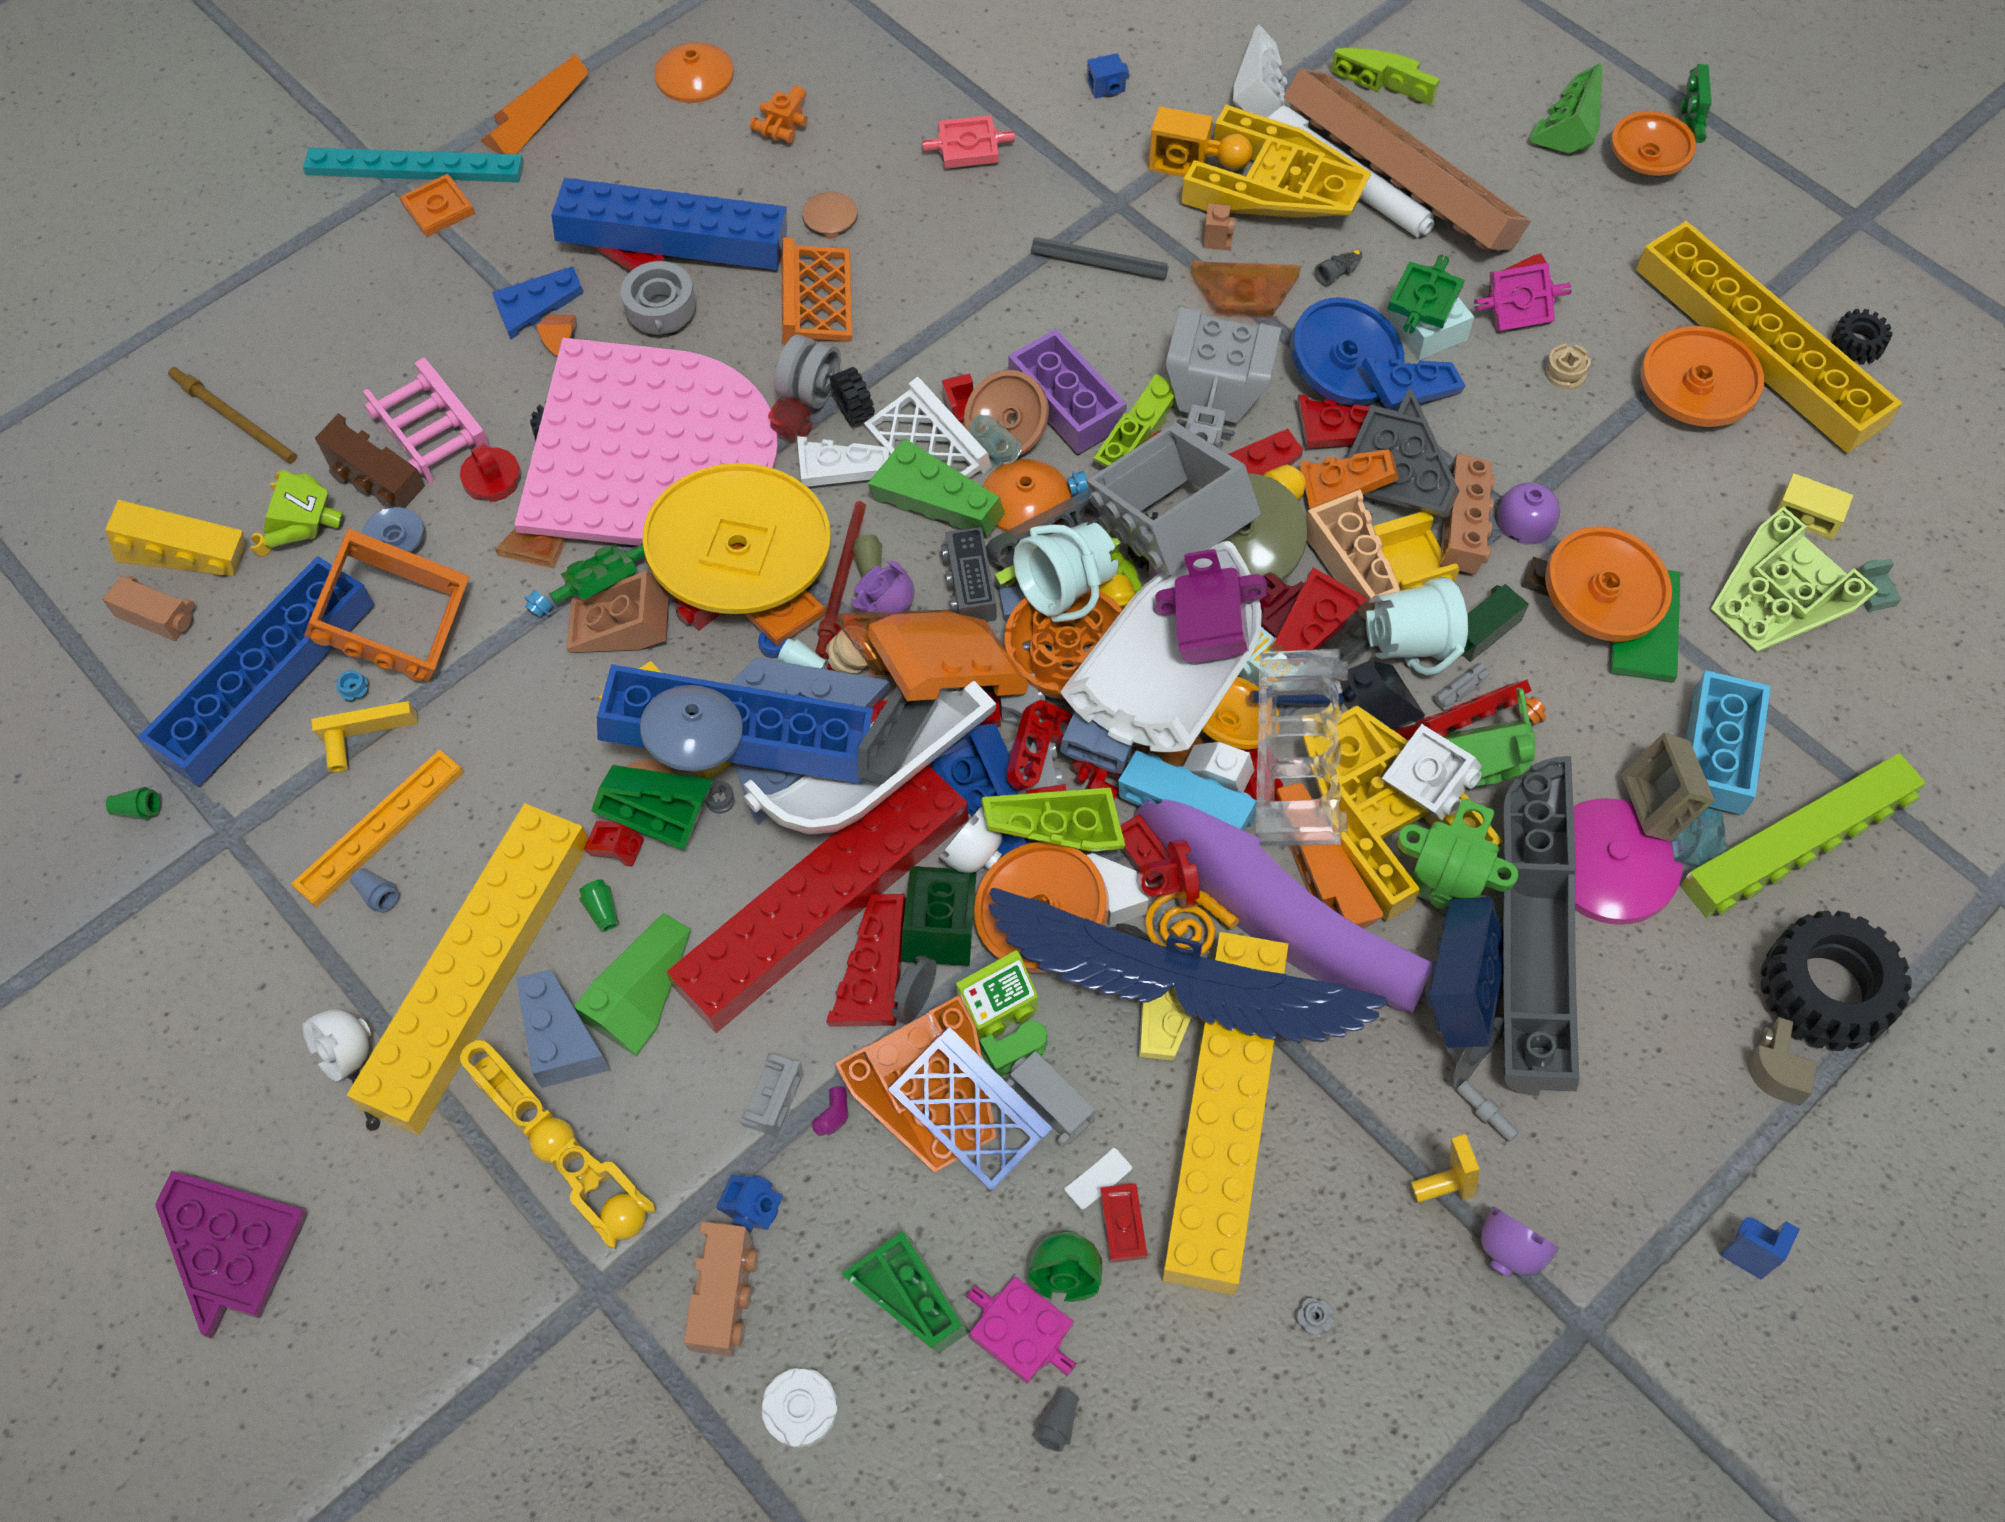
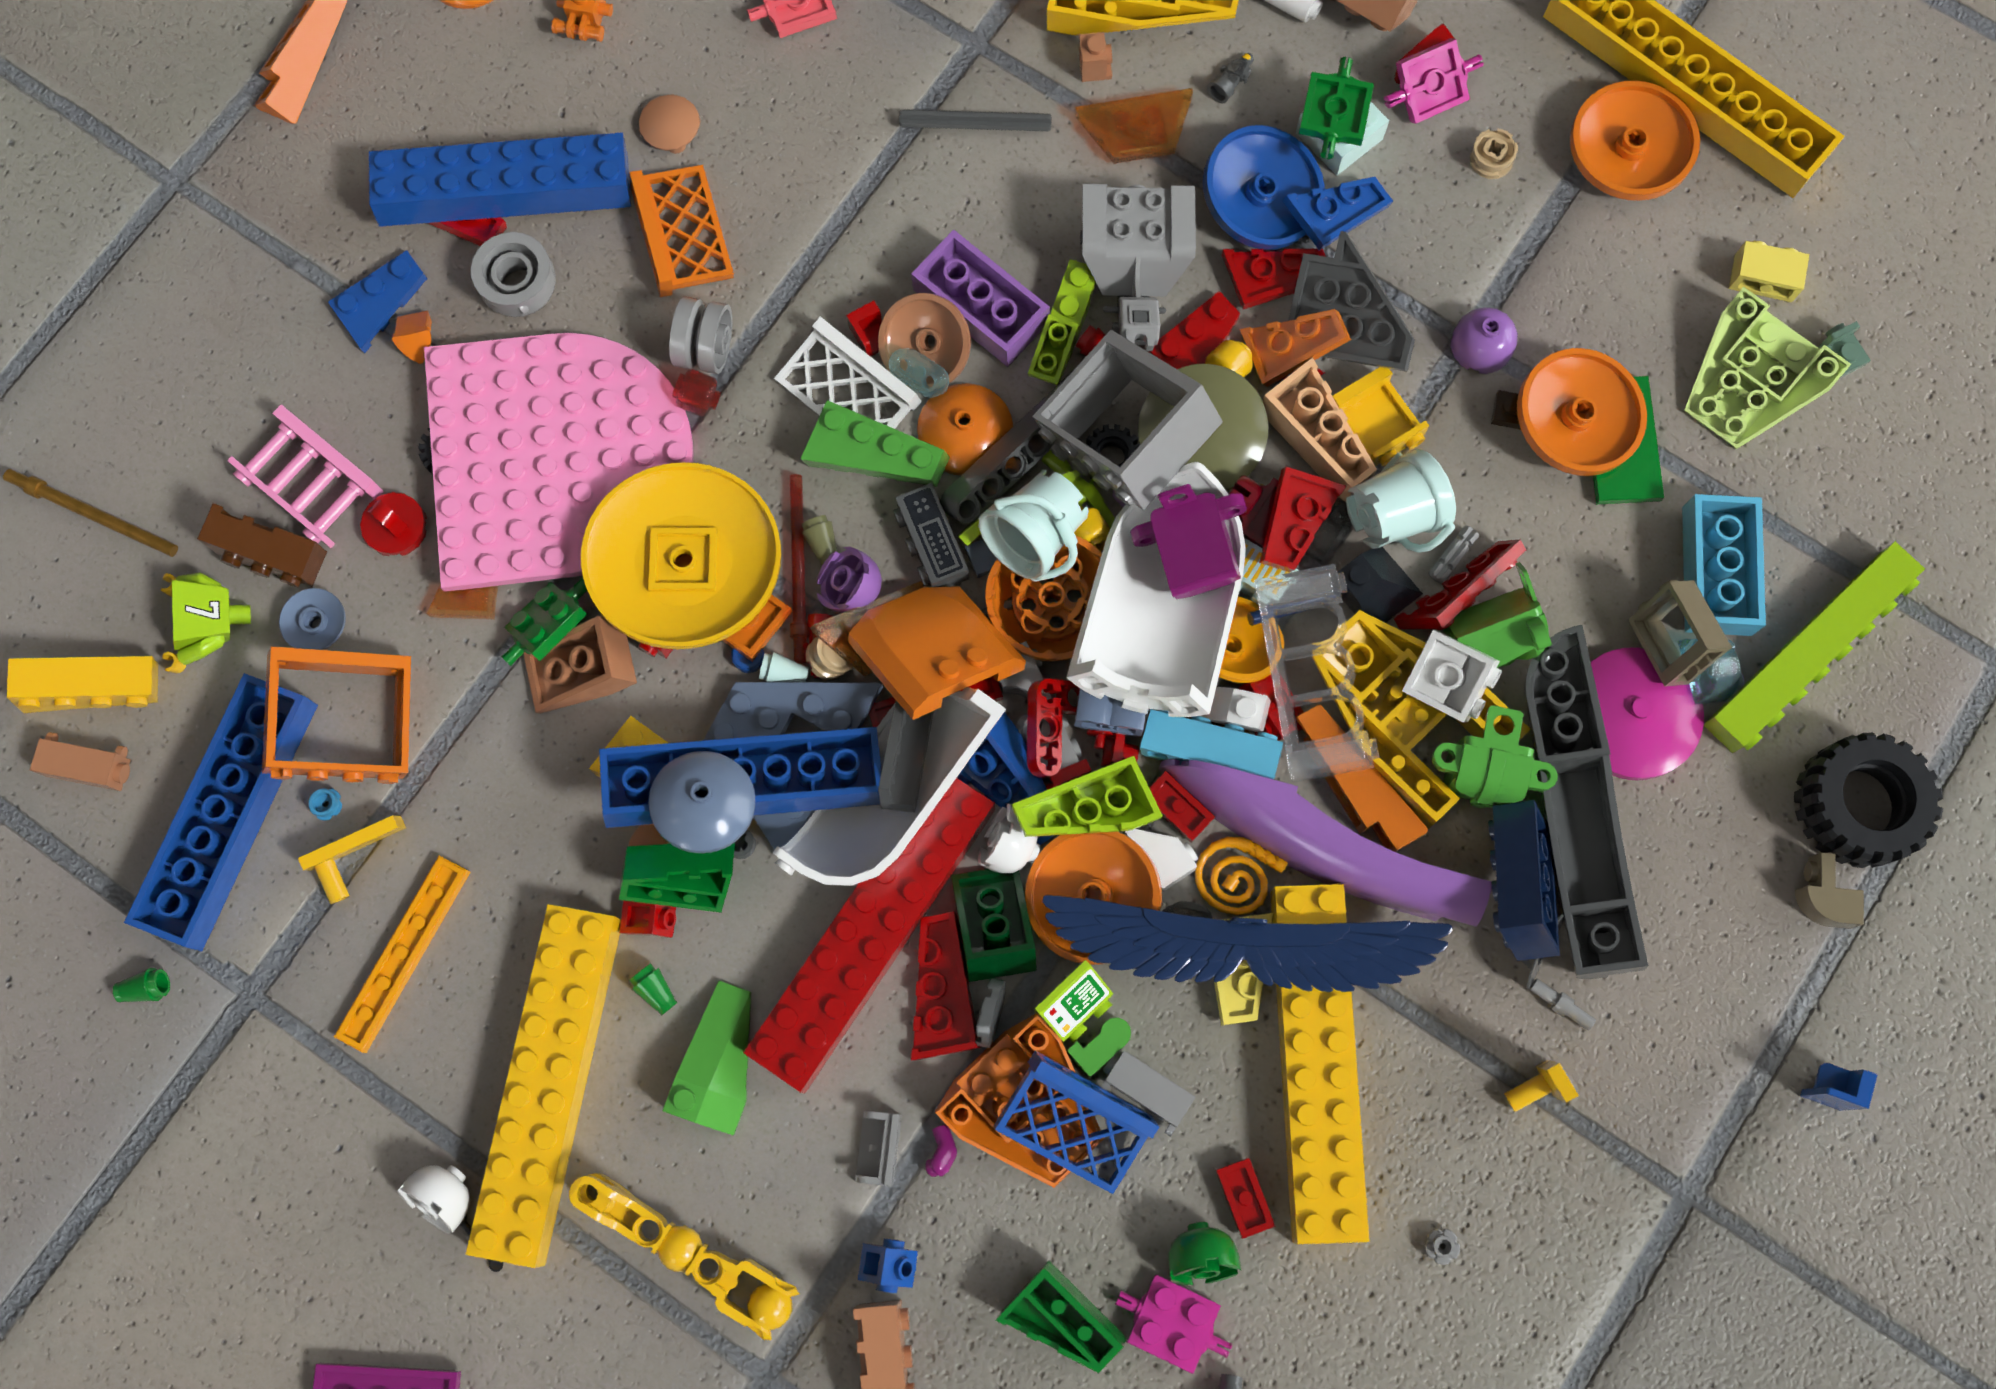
camera: 10 degrees left, 15 degrees up
(376, 891) = (422, 1025): sand blue cone -> none
(413, 164) = (188, 154): teal plate -> none
(437, 205) = (232, 201): orange tile -> none
(538, 604) = (491, 668): dark azure plate -> none
(554, 1032) = (649, 1137): sand blue wedge -> none
(834, 464) = (760, 433): white wing -> none
(852, 395) = (755, 353): black tyre -> none
(1077, 483) = (1017, 404): dark azure plate -> none
(1102, 1174) = (1210, 1156): white sticker -> none
(1177, 875) = (1220, 838): red tile -> none
(1468, 522) = (1429, 376): nougat brick -> none
(1493, 620) = (1473, 470): dark green brick -> none
(1514, 1245) = (1614, 1137): medium lavender cylinder -> none
(1535, 710) = (1532, 566): orange plate -> none
(1867, 325) = (1794, 39): black tyre -> none

